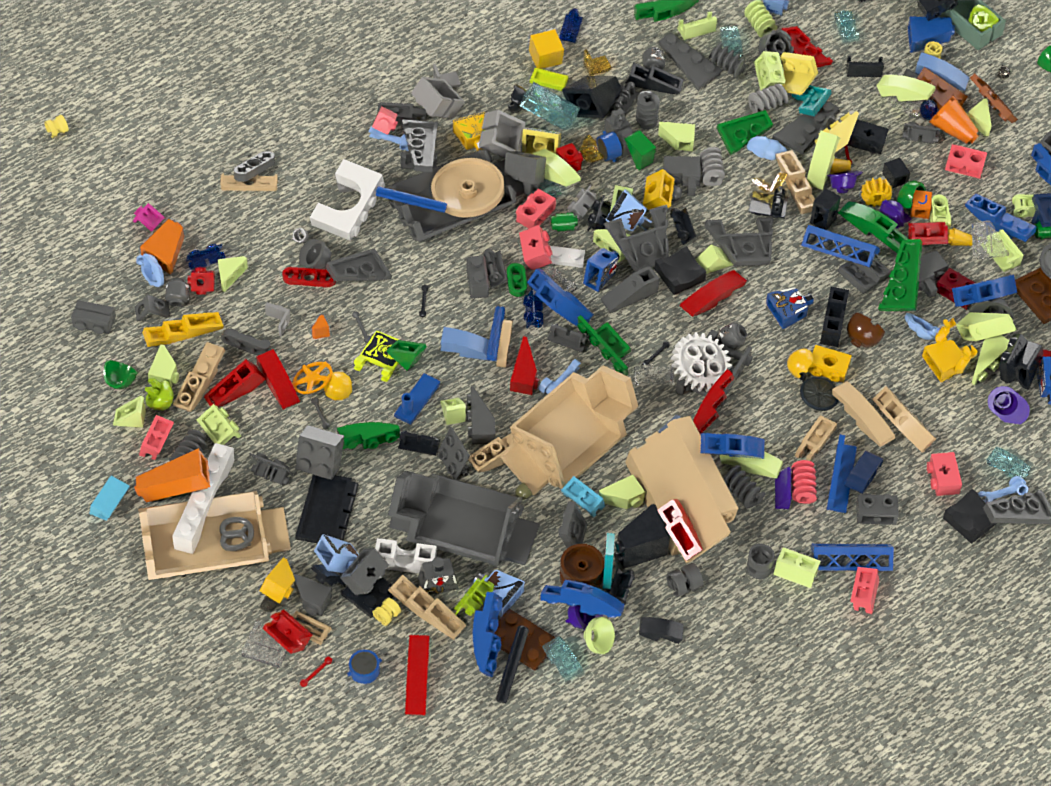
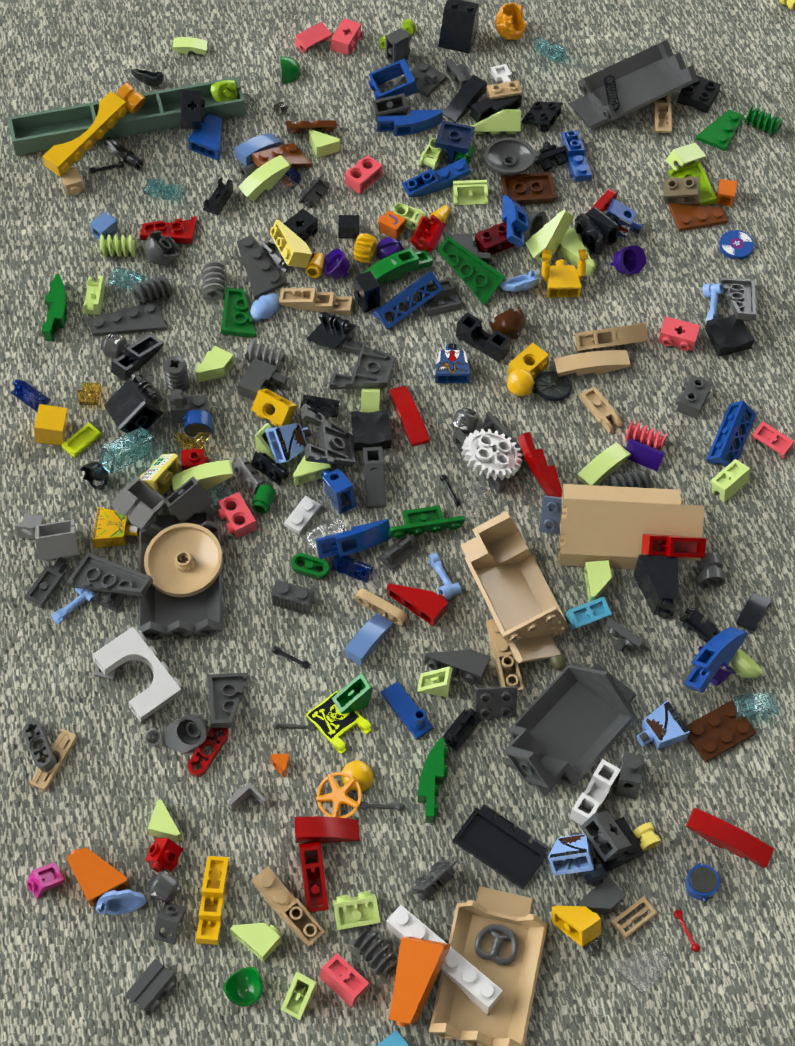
camera: 65 degrees left, 5 degrees up
(159, 395) = (293, 955): lime piece -> none
(212, 253) = (128, 832): clear blue hinge -> none
(245, 342) = (264, 842): dark grey plate -> none
(287, 632) = (639, 938): red hinge -> none
(319, 452) = (443, 822): dark grey brick -> none
(385, 121) = (54, 599): coral brick -> none
(411, 199) = (174, 614): blue axle -> none
(426, 607) = (655, 798): tan slope -> none
(475, 596) = (666, 754): lime hinge -> none
(485, 640) = (719, 760): blue slope -> none
(495, 267) = (286, 575): dark grey hinge -> none
(495, 333) = (367, 609): blue axle -> none
(512, 664) = (749, 749): black axle -> none
(535, 247) = (273, 534): coral brick -> none
(582, 564) = (669, 647): reddish brown wheel -> none
(608, 562) = (676, 619): teal tile -> none
(641, 149) = (219, 398): green slope -> none
(732, 445) = (609, 465): blue slope -> none
(760, 561) = (716, 504): dark grey wheel -> none
(764, 186) = (309, 326): clear yellow bracket -> none
(769, 69) = (185, 265): yellowish green bracket -> none
(798, 72) = (200, 247): light yellow bracket -> none
(813, 99) = (231, 245): teal tile -> none
(822, 159) = (313, 267): yellowish green slope -> none
(843, 466) = (647, 408): blue fence -> none
(864, 472) = (655, 388): dark blue beam -> none
(907, 191) = (380, 227): green helmet -> none
(933, 49) = (232, 140): light yellow wheel -> none
(955, 122) = (318, 161): orange cone -> none
(986, 241) = (459, 197): clear wing -> none
(1008, 463) = (687, 286): clear light blue slope -> none

